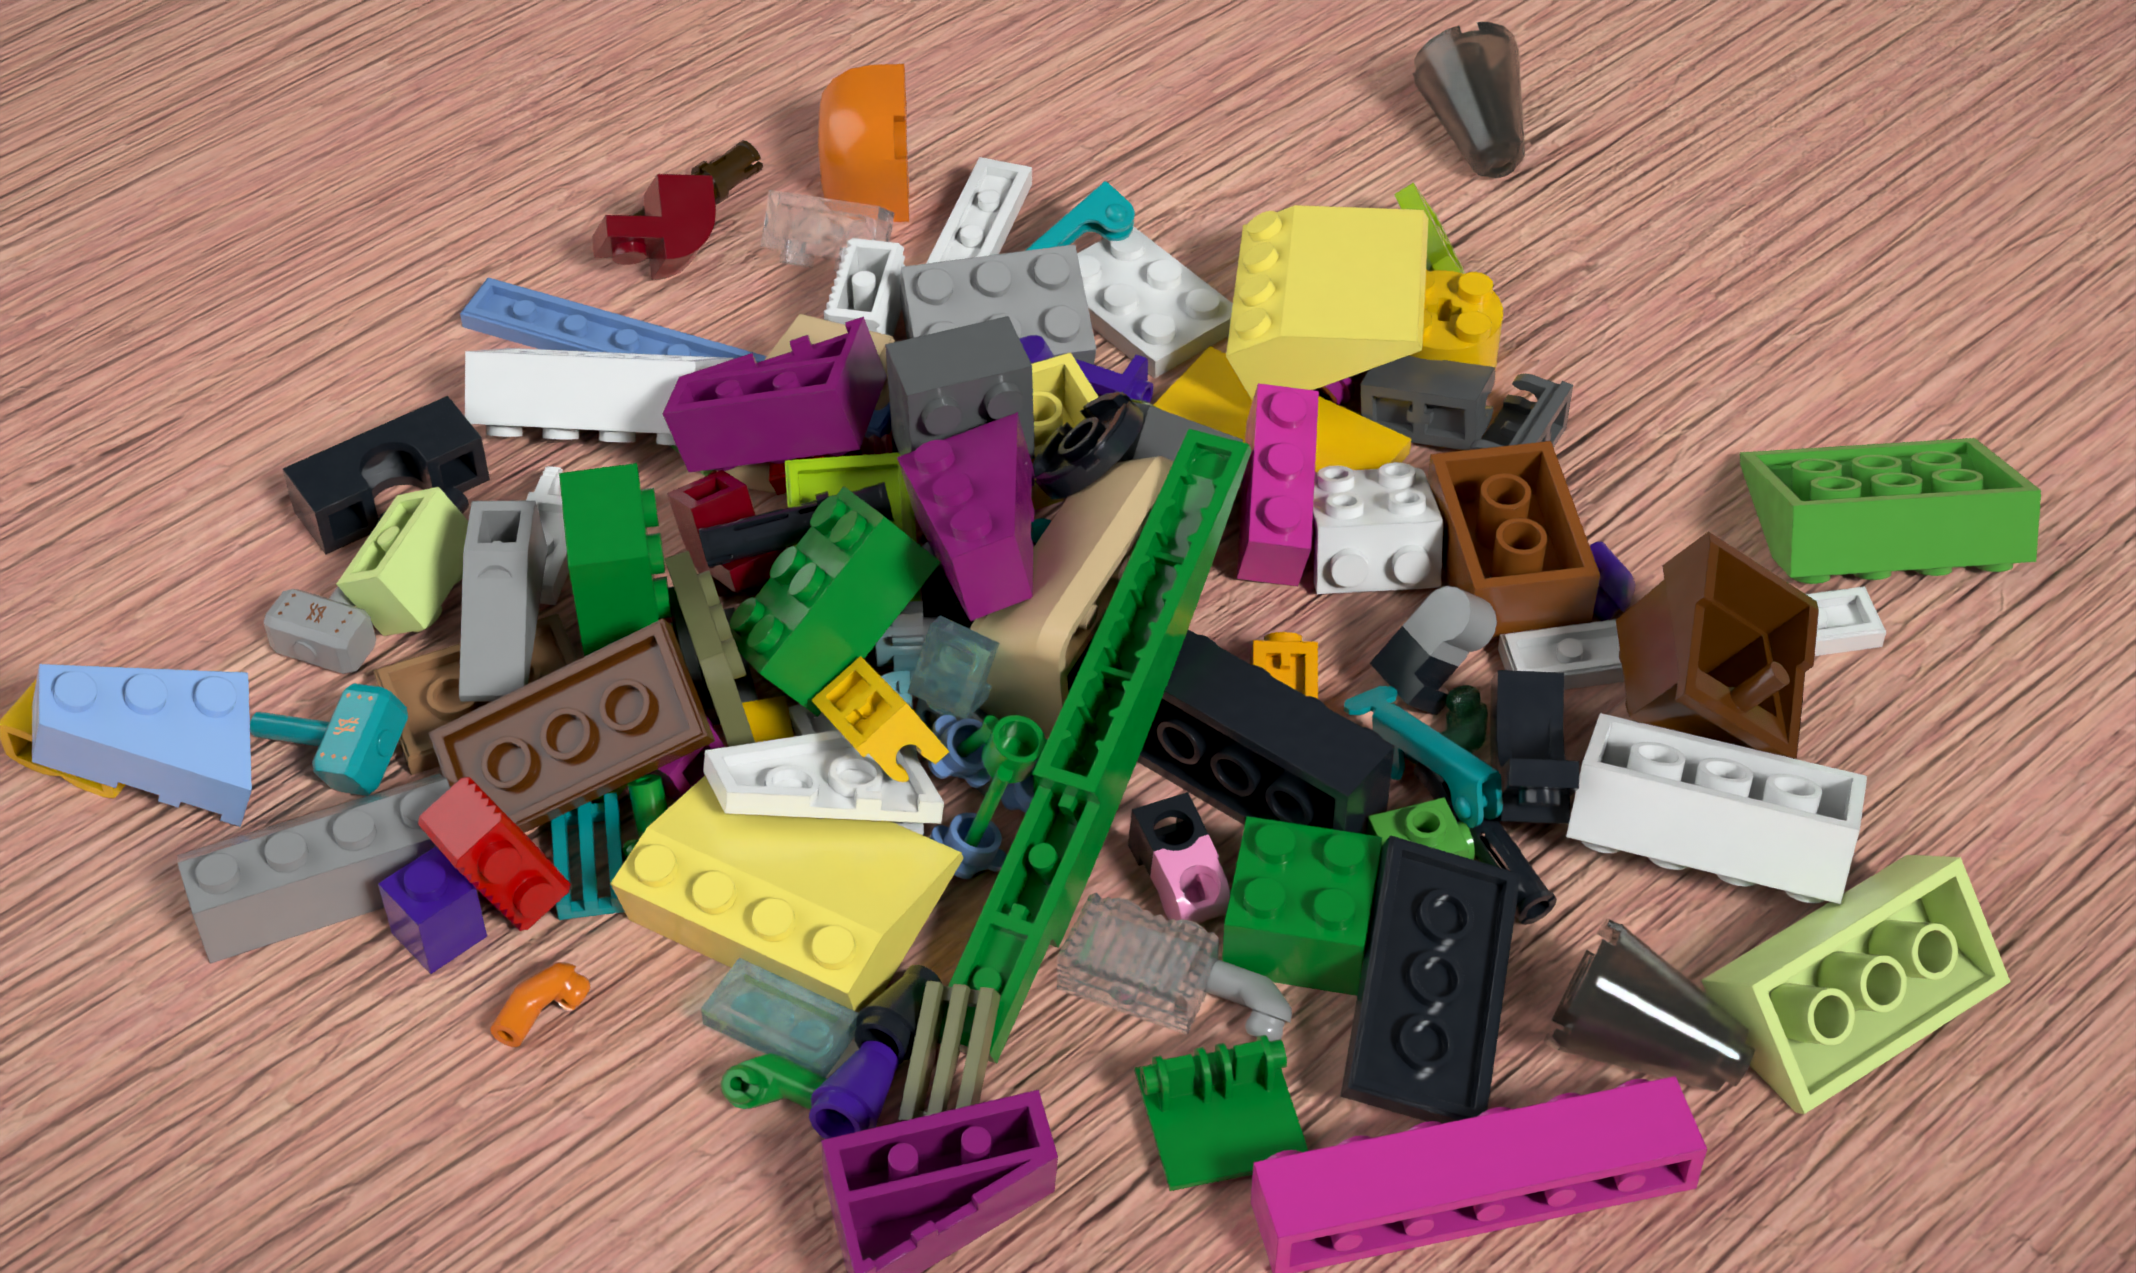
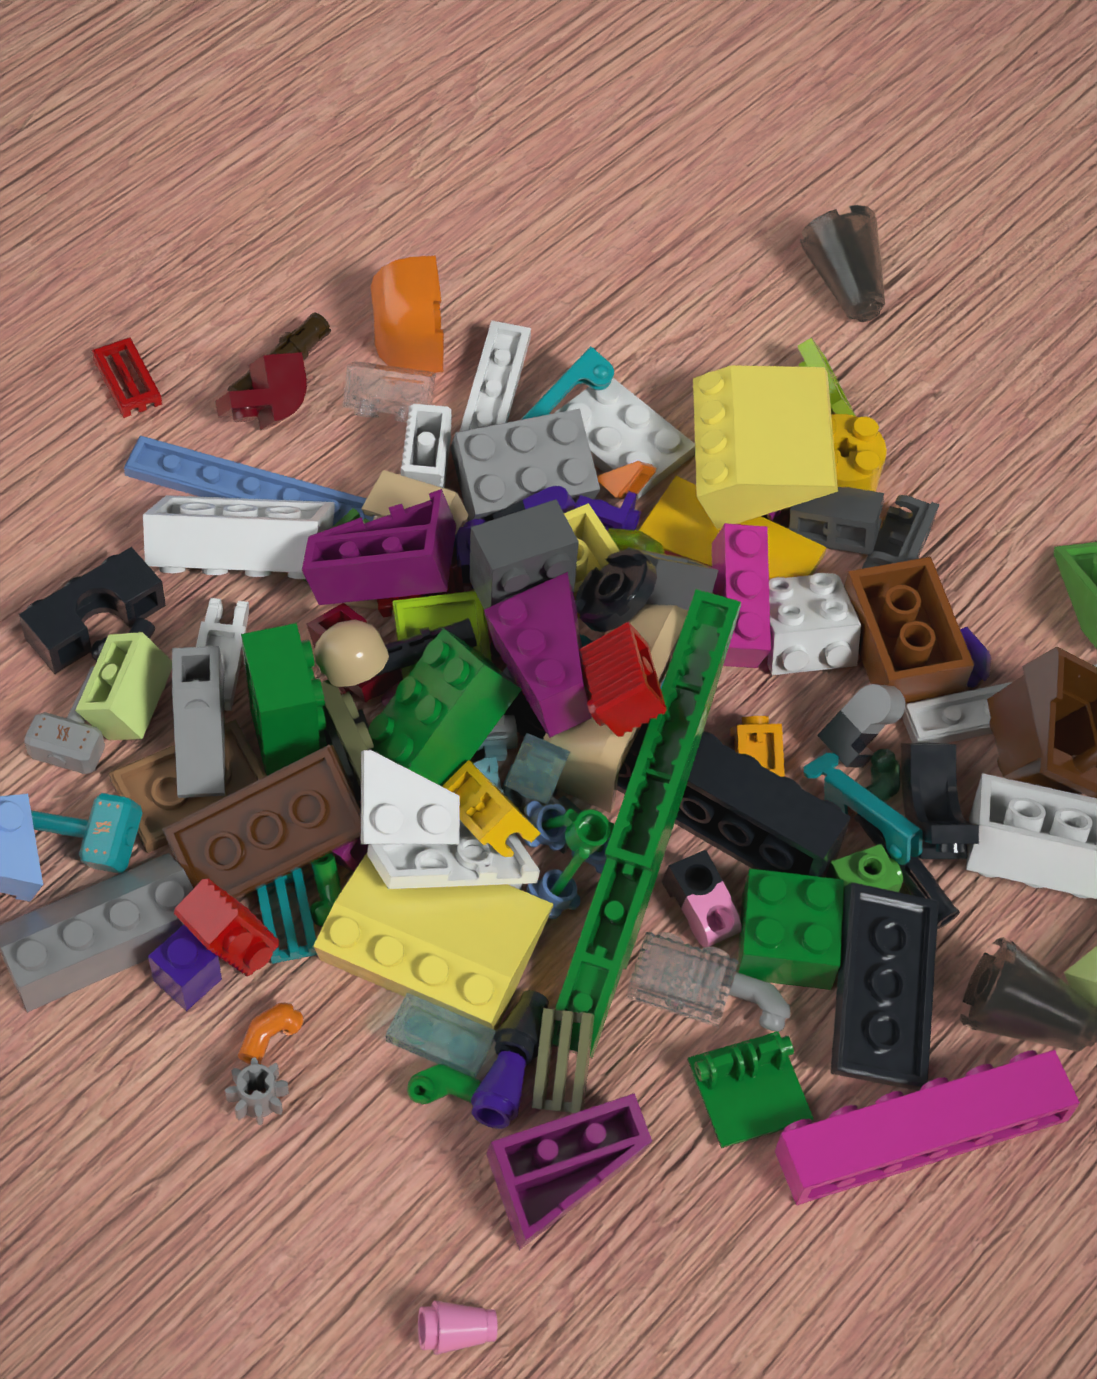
camera: 10 degrees left, 10 degrees up
(491, 237) = (137, 400): none -> red tile
(507, 1073) = (256, 1078): none -> light grey gear
(714, 516) = (350, 653): none -> tan hair
(758, 702) = (404, 805): none -> white wing
(1071, 537) = (621, 680): none -> red brick
(1141, 335) = (627, 478): none -> orange slope

